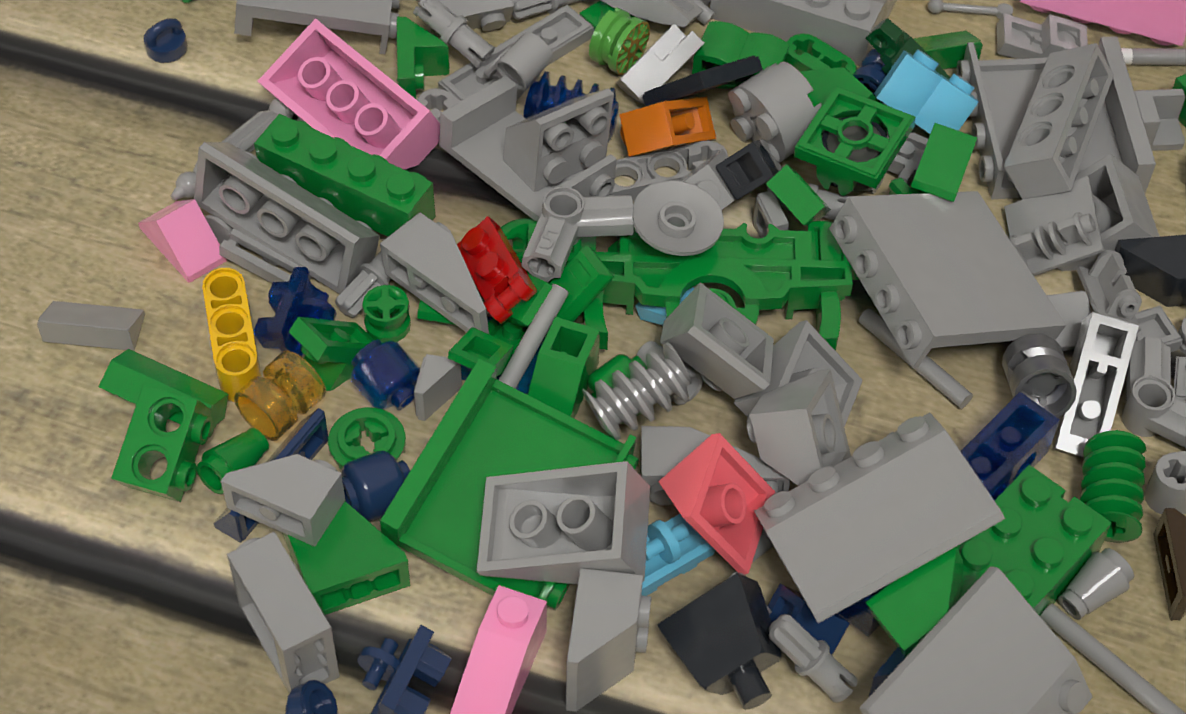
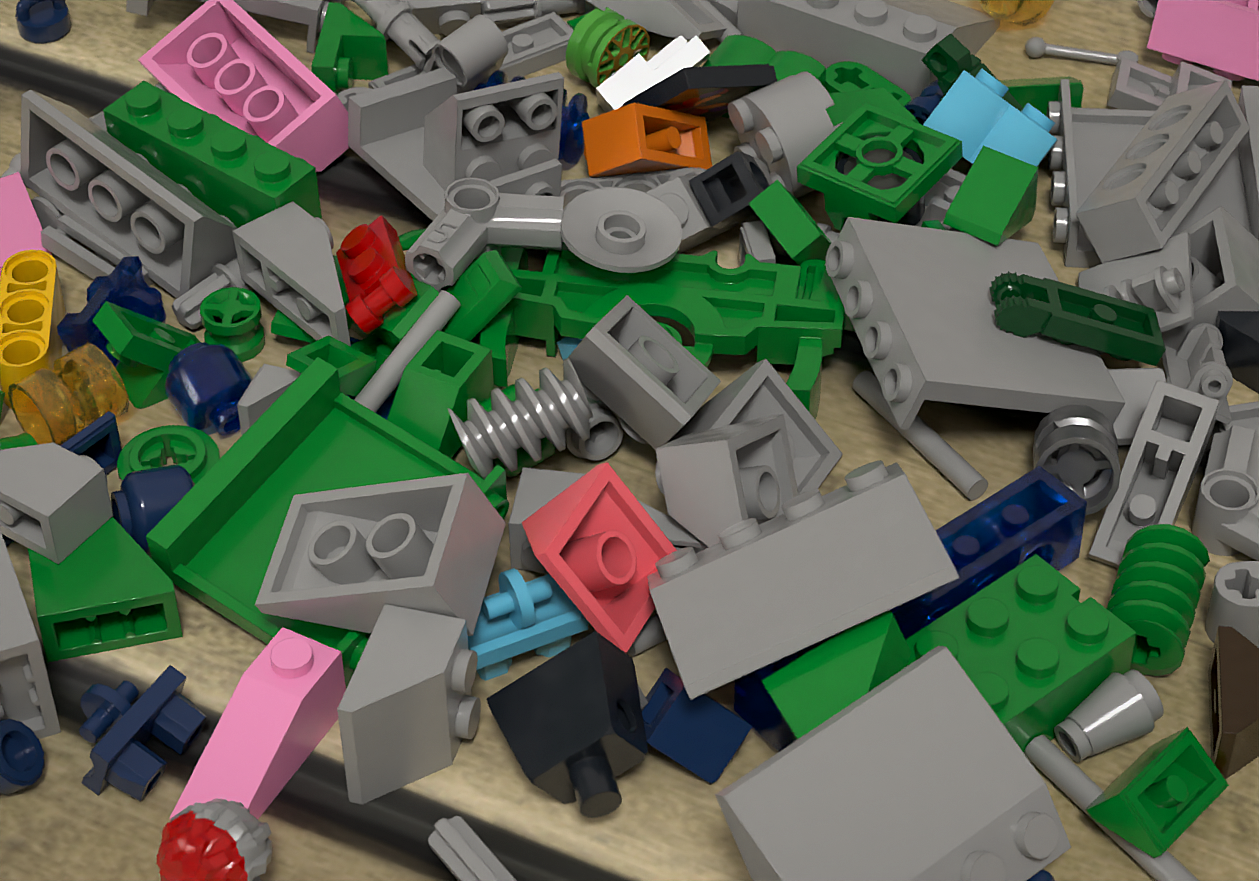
camera: 10 degrees right, 10 degrees down
(812, 658) = (682, 753): light grey axle -> none
(1023, 260) = (1077, 317): none -> dark green hinge
(1140, 642) = (1160, 793): none -> green slope

